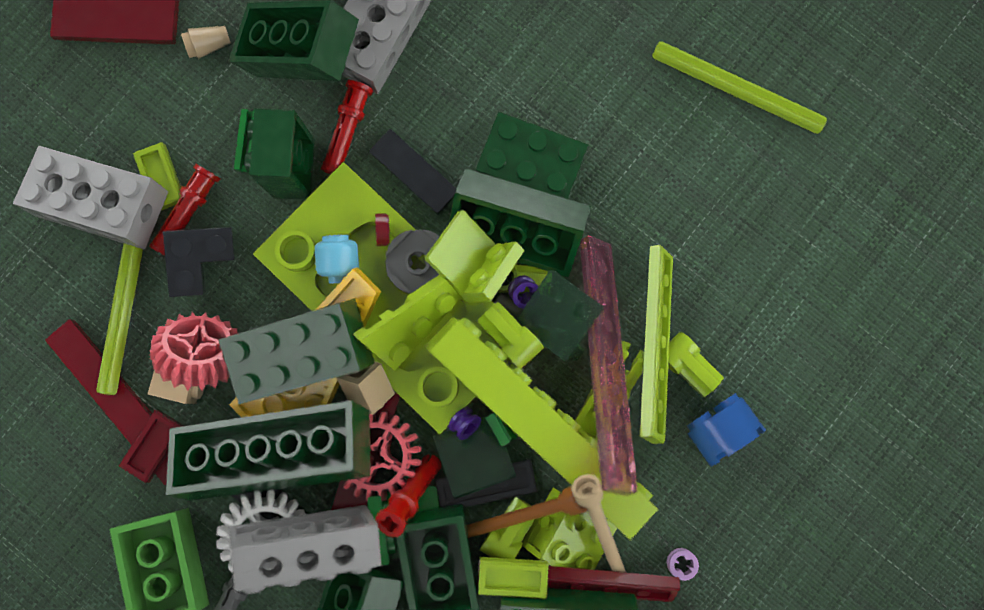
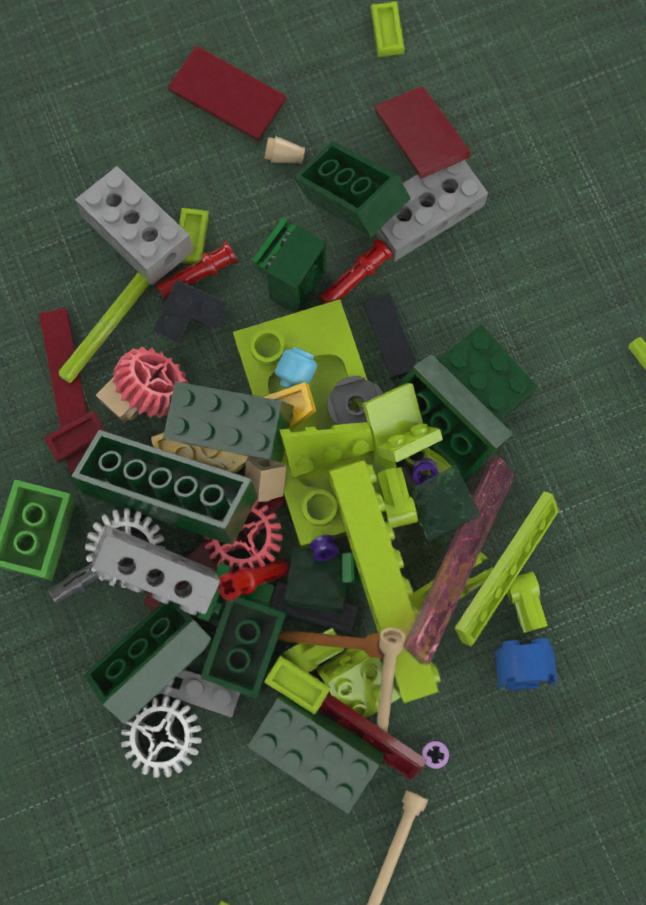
camera: 25 degrees right, 5 degrees down
(382, 229) = (342, 366): dark red tile -> none

